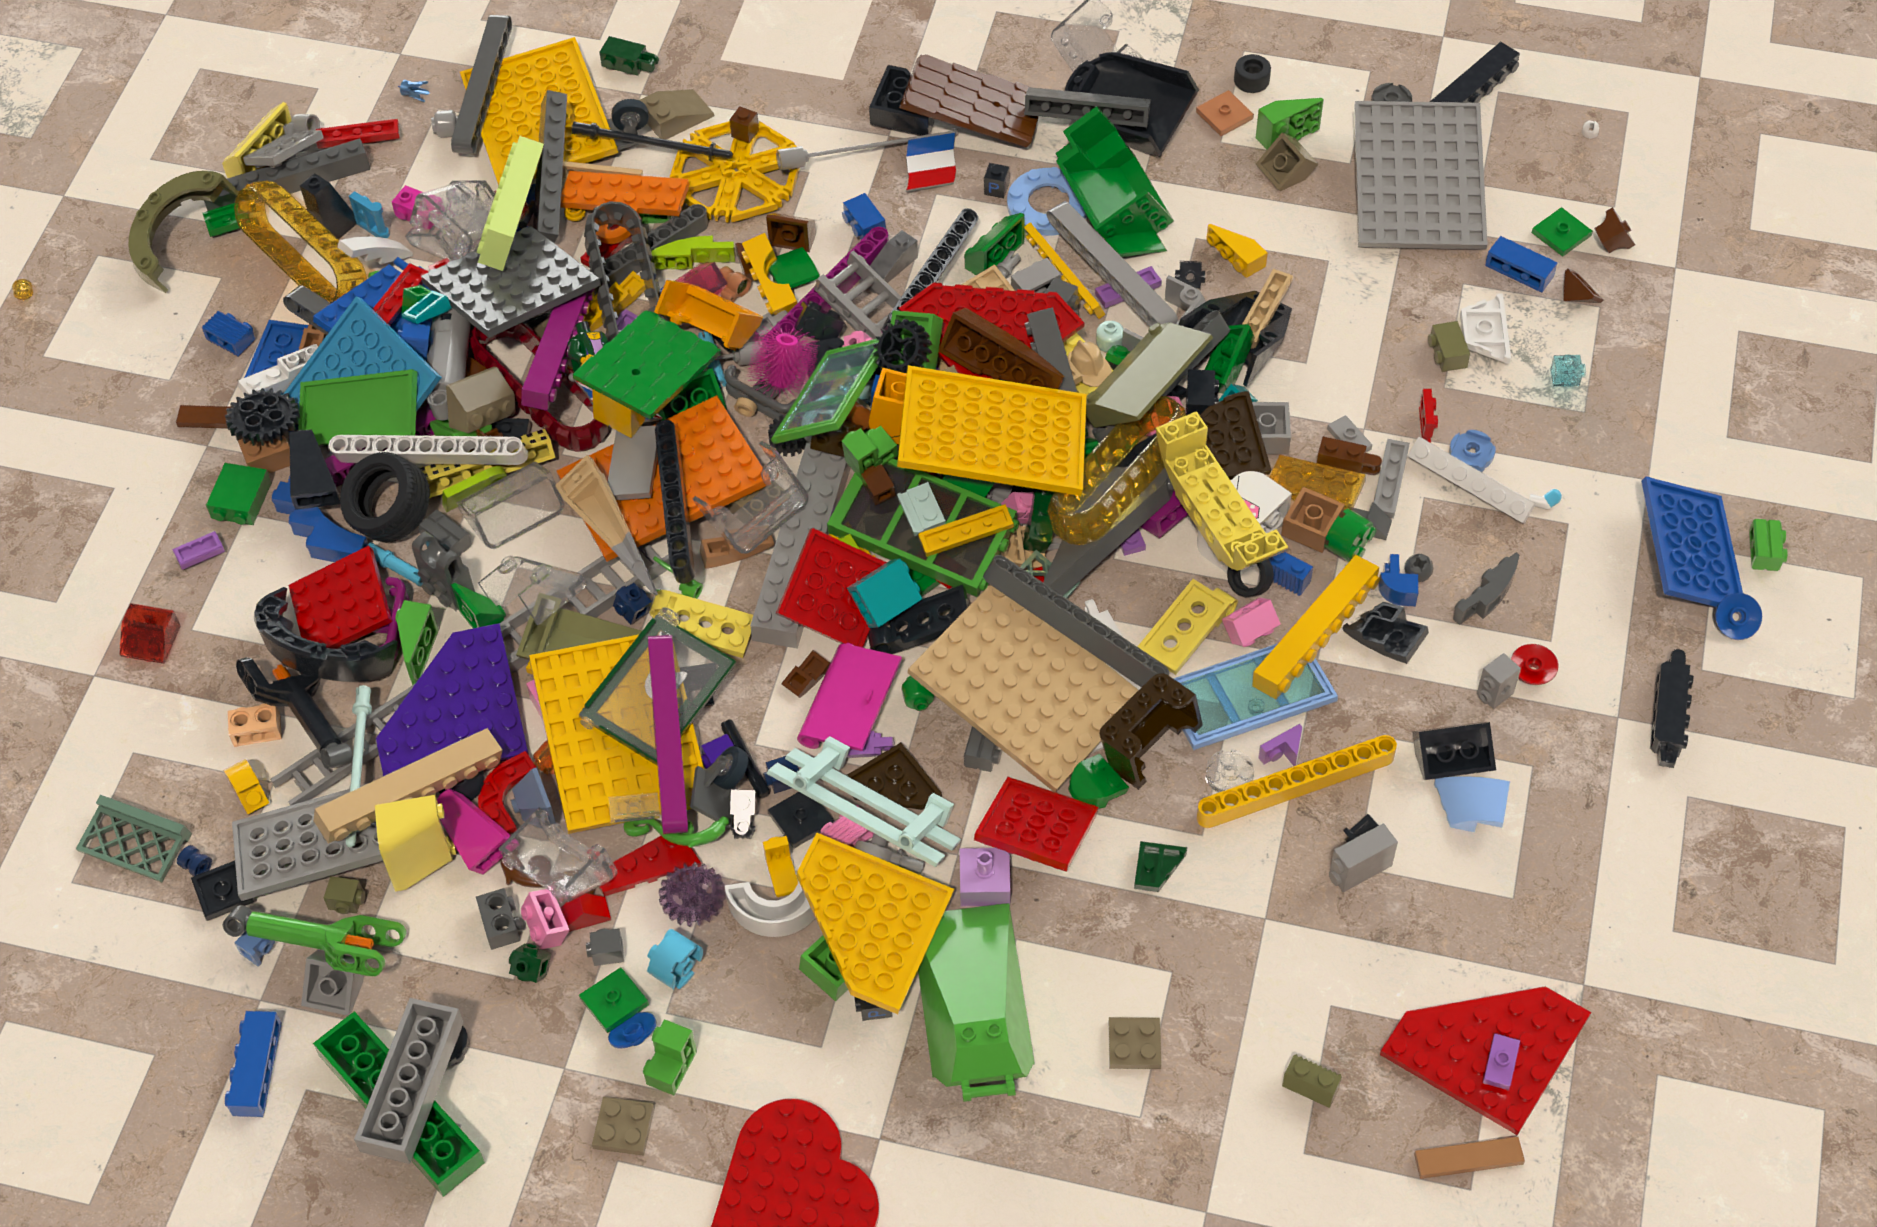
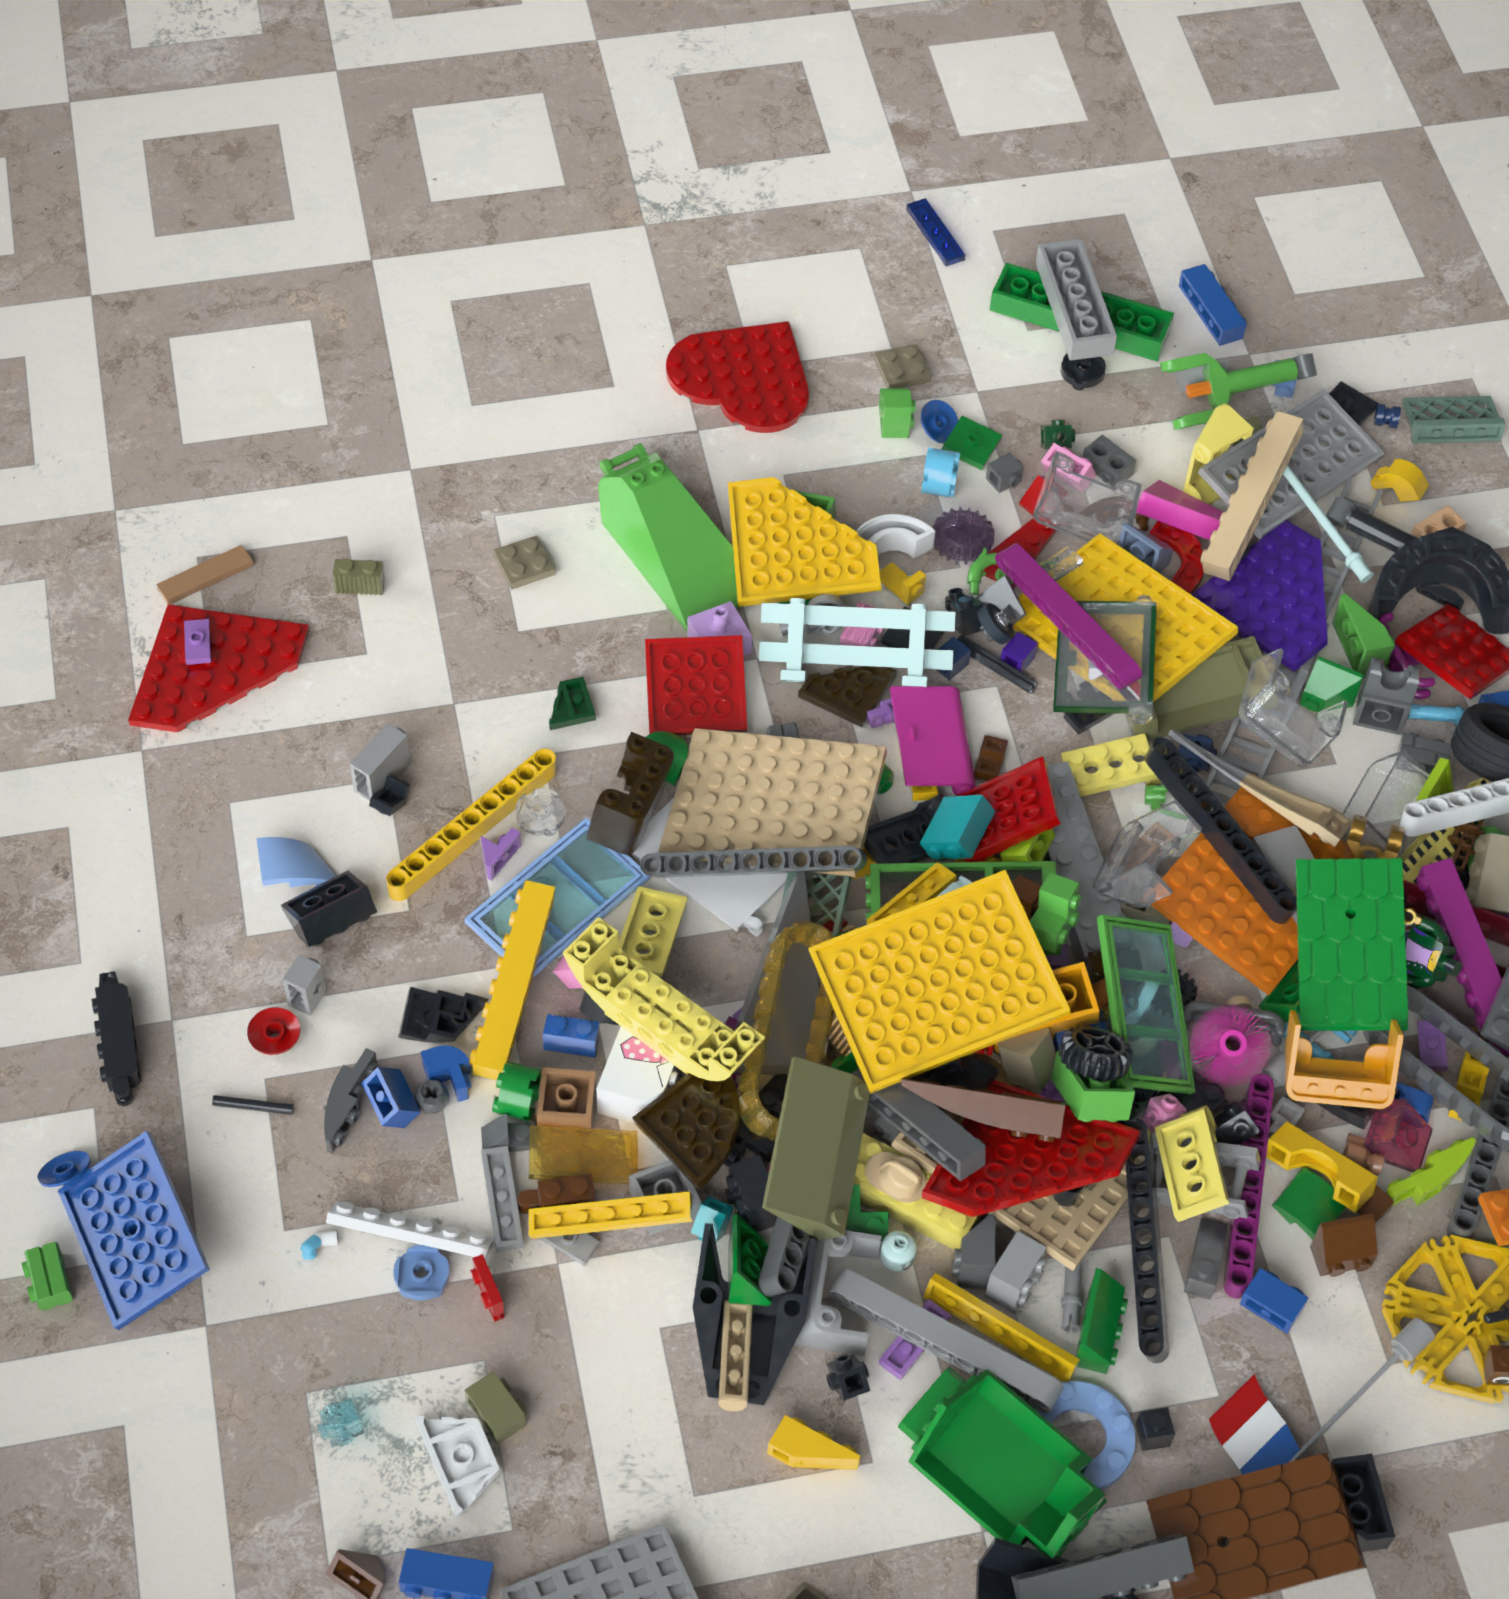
camera: 150 degrees right, 0 degrees up
(559, 453) = (1358, 848): none -> pearl gold piece
(849, 310) = (1201, 1127): none -> light yellow hinge
(1316, 414) = (610, 1215): none -> yellow plate
(1454, 572) = (391, 1097): none -> blue brick
(1568, 620) = (250, 1104): none -> black bar

